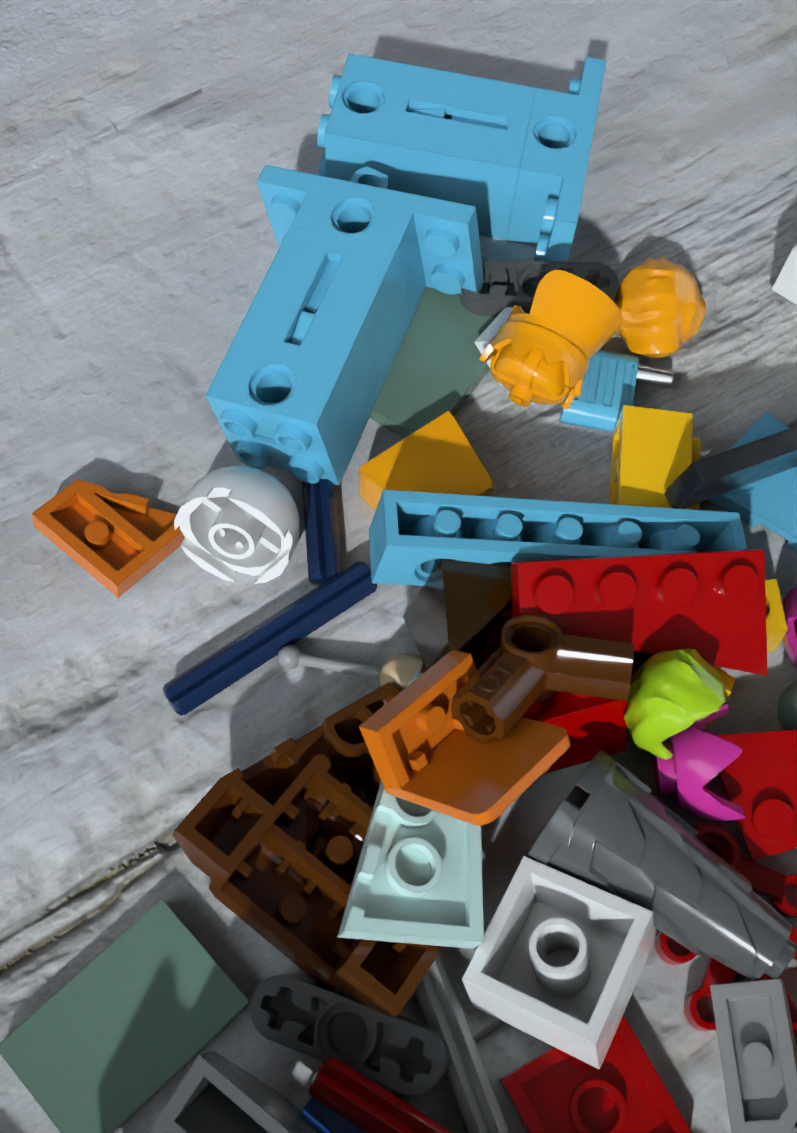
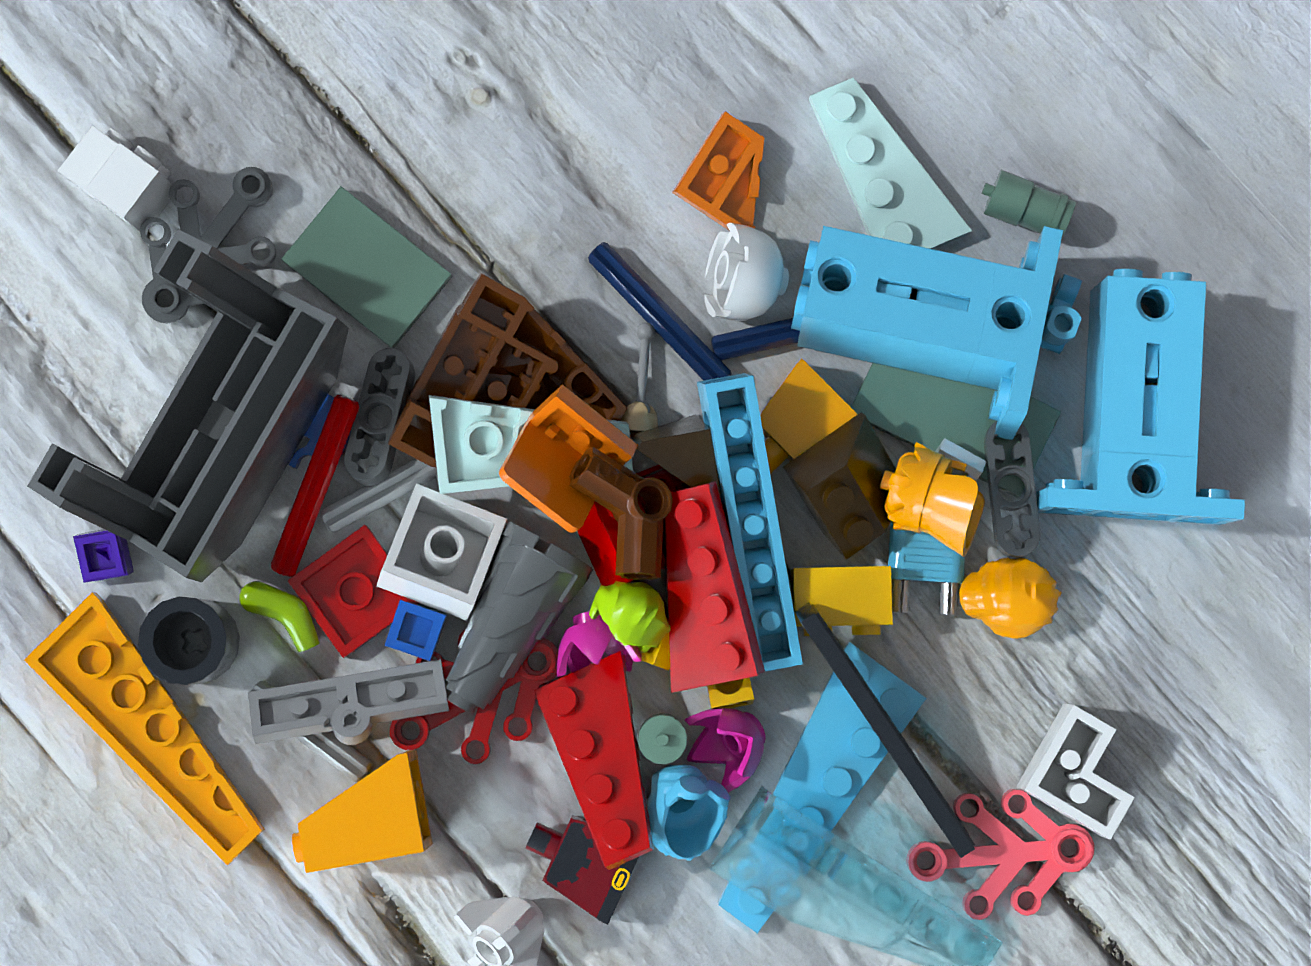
camera: 85 degrees right, 20 degrees up
(142, 375) = (881, 173): none -> light aqua wing
(223, 234) = (1027, 205): none -> sand green piece
(524, 448) = (842, 485): none -> dark brown slope
(666, 1018) = (415, 630): none -> blue tile

